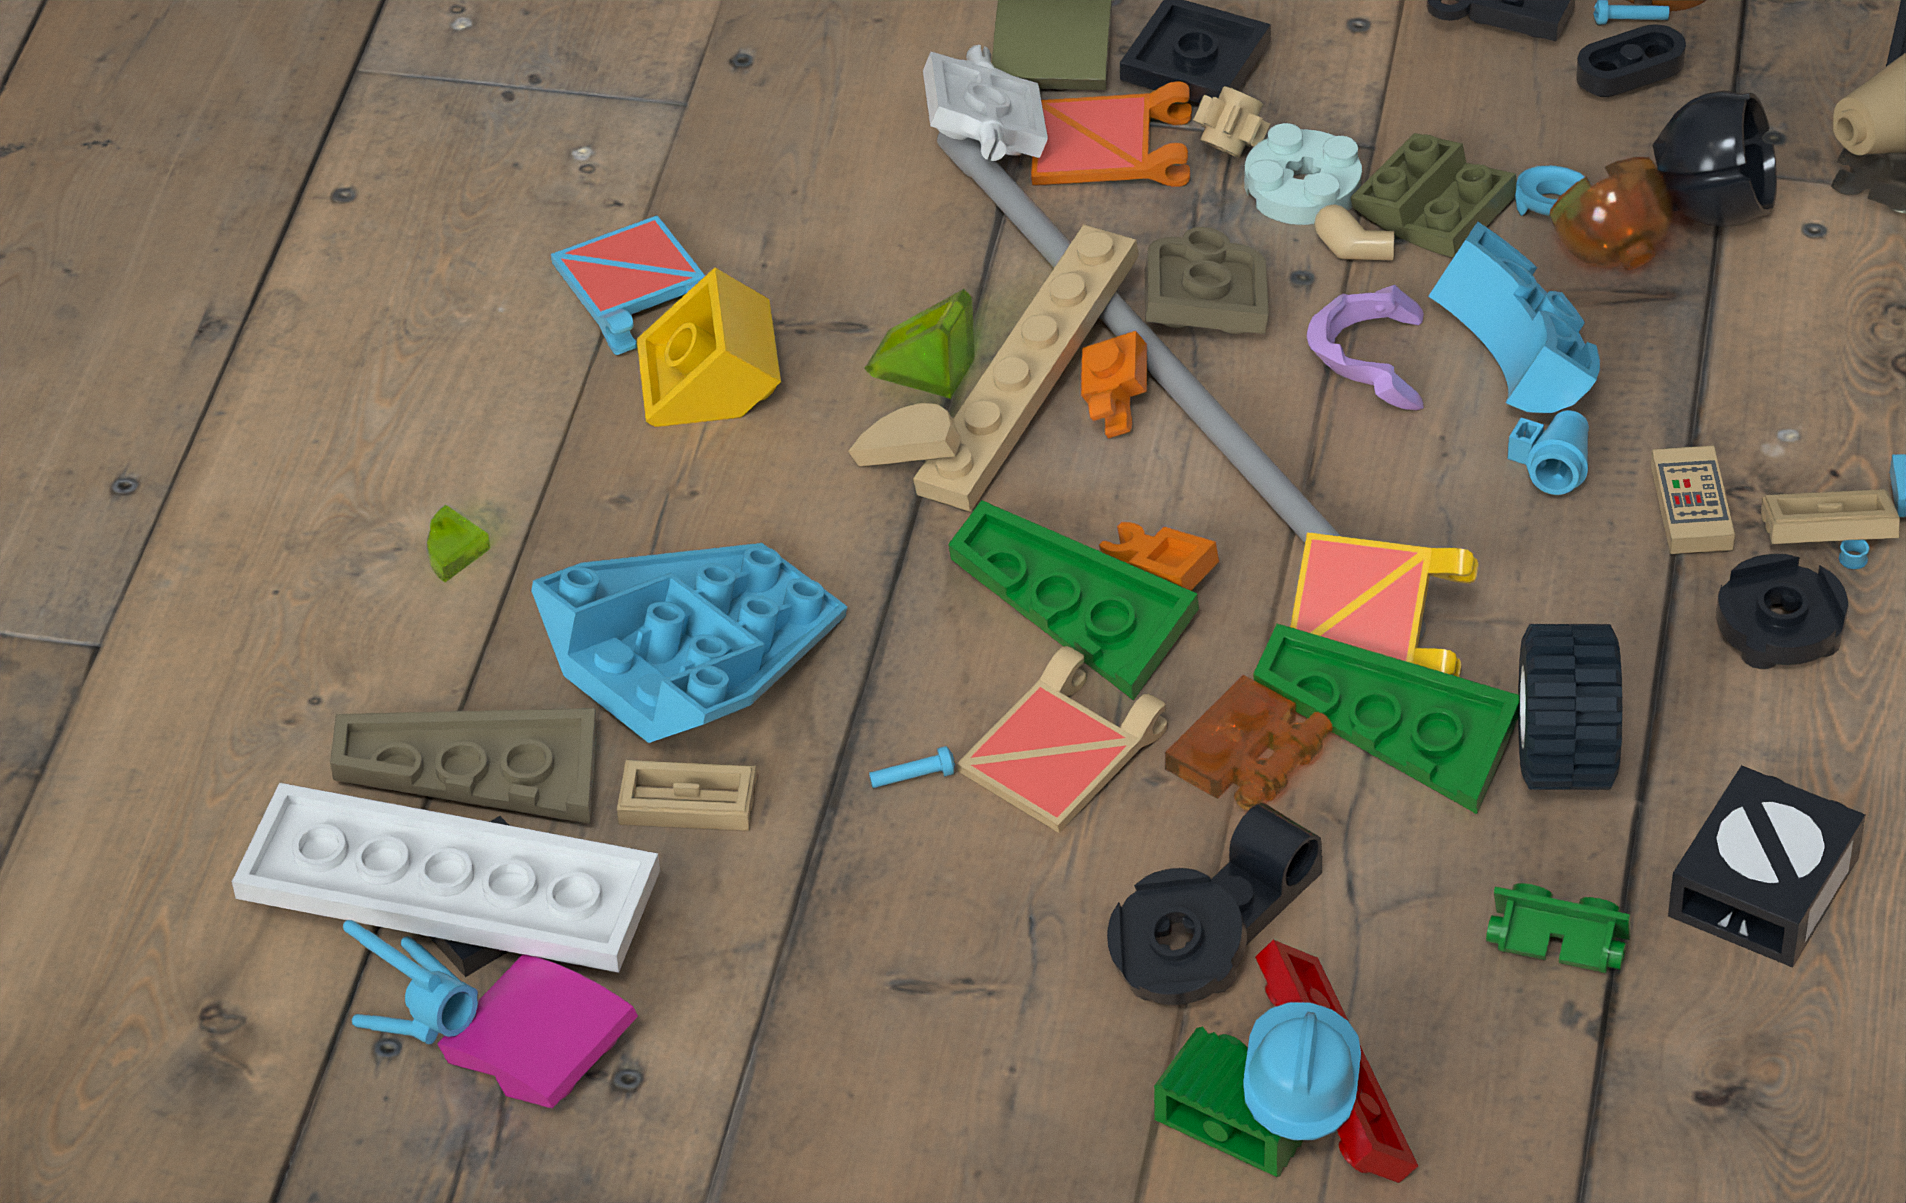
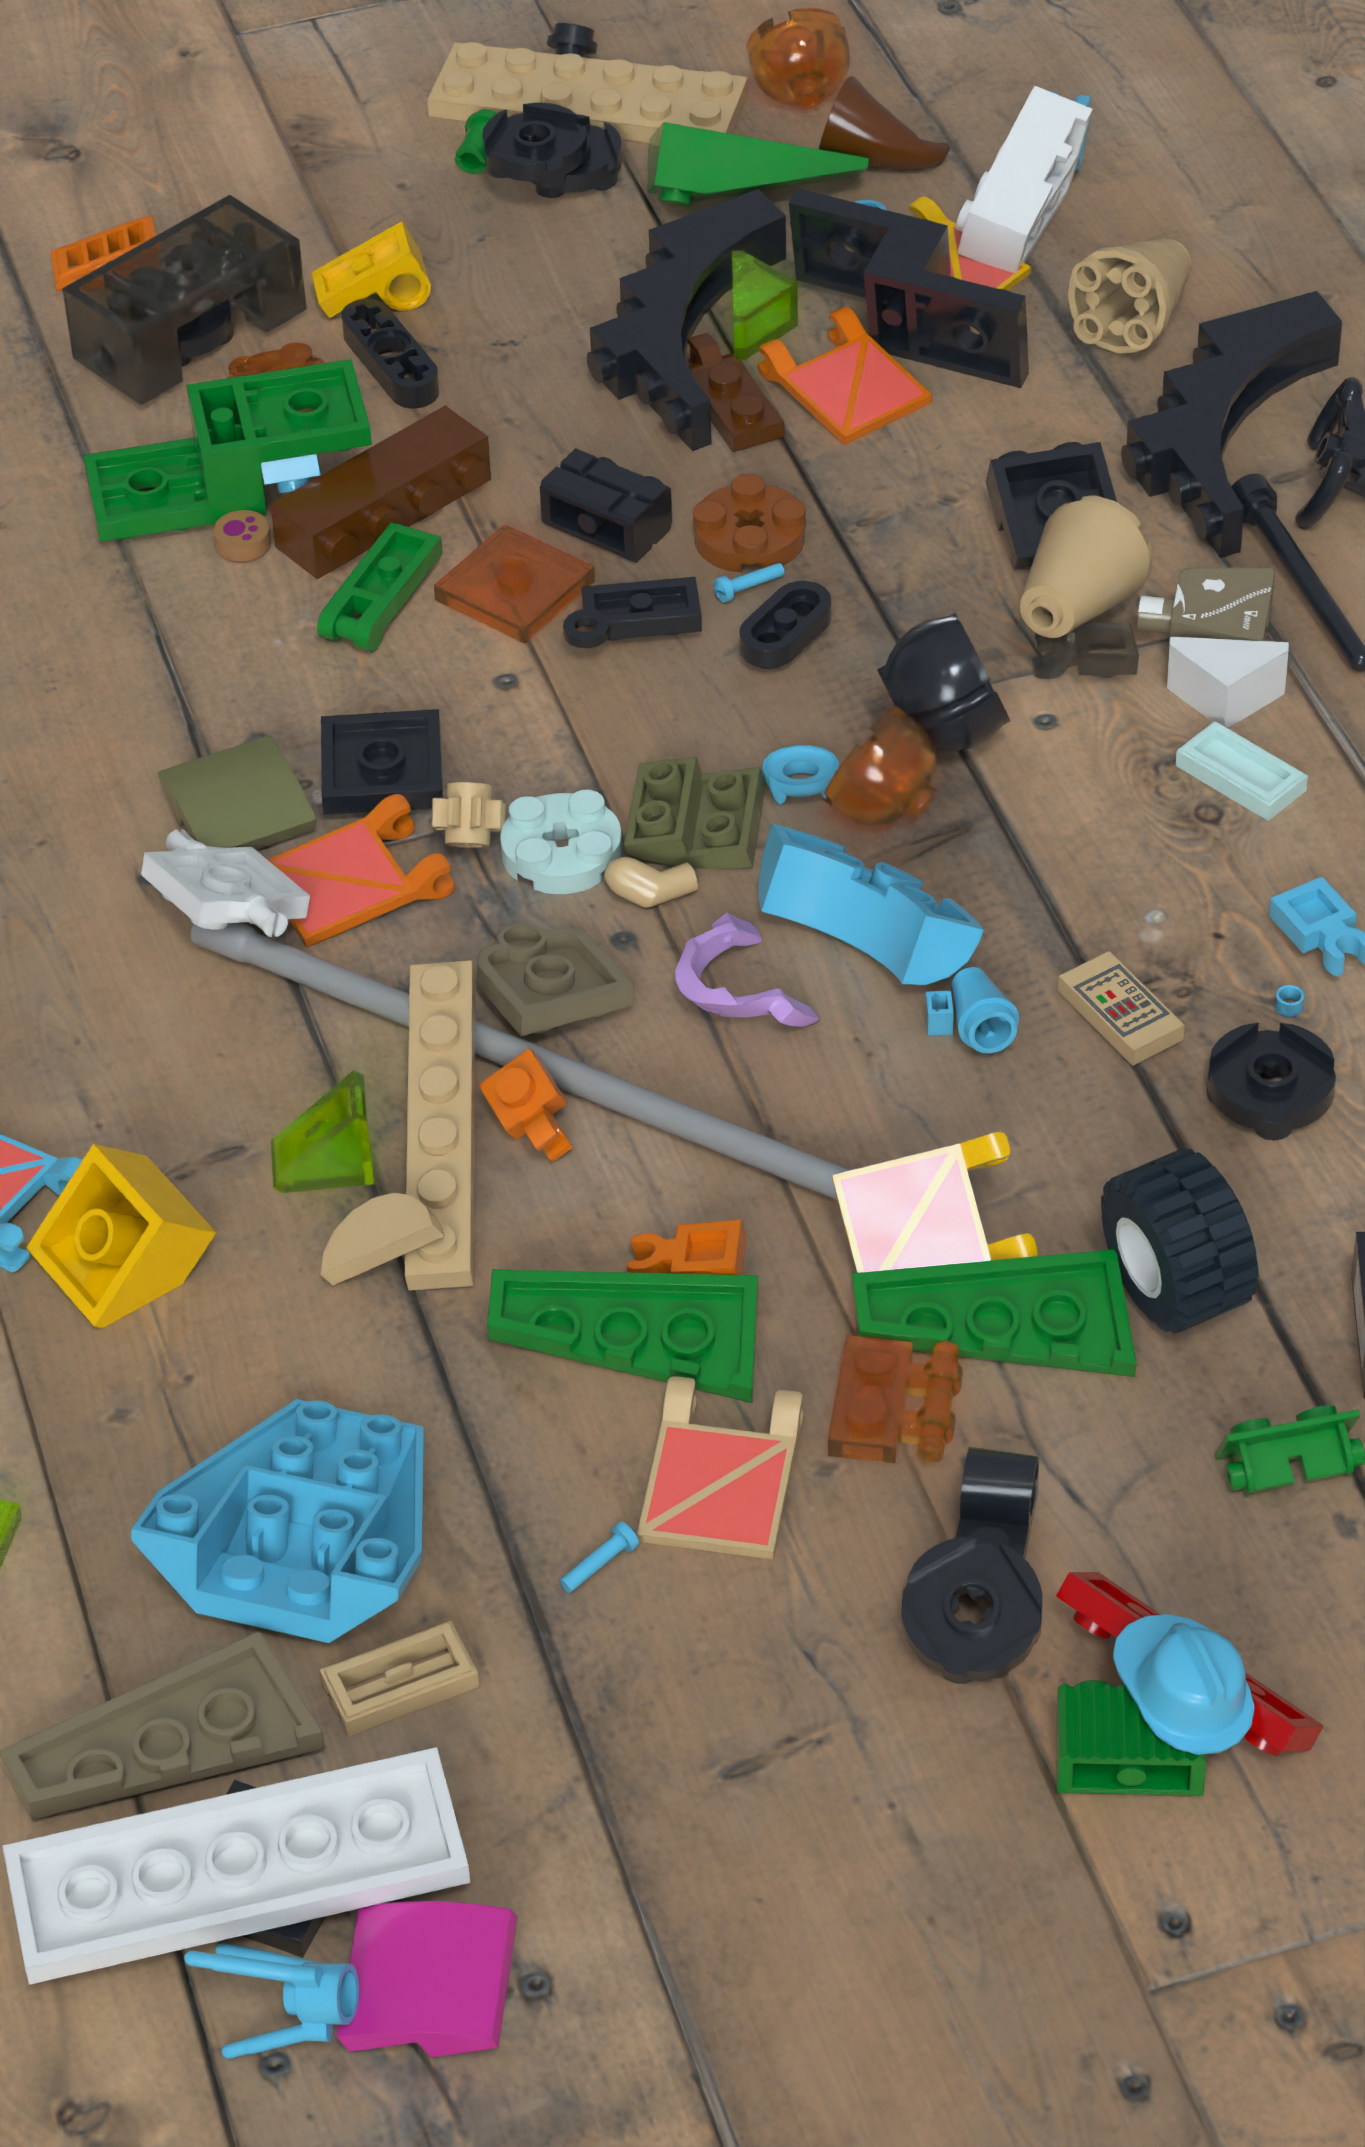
camera: 30 degrees left, 0 degrees up
(1830, 516) = (1251, 976): tan tile -> none

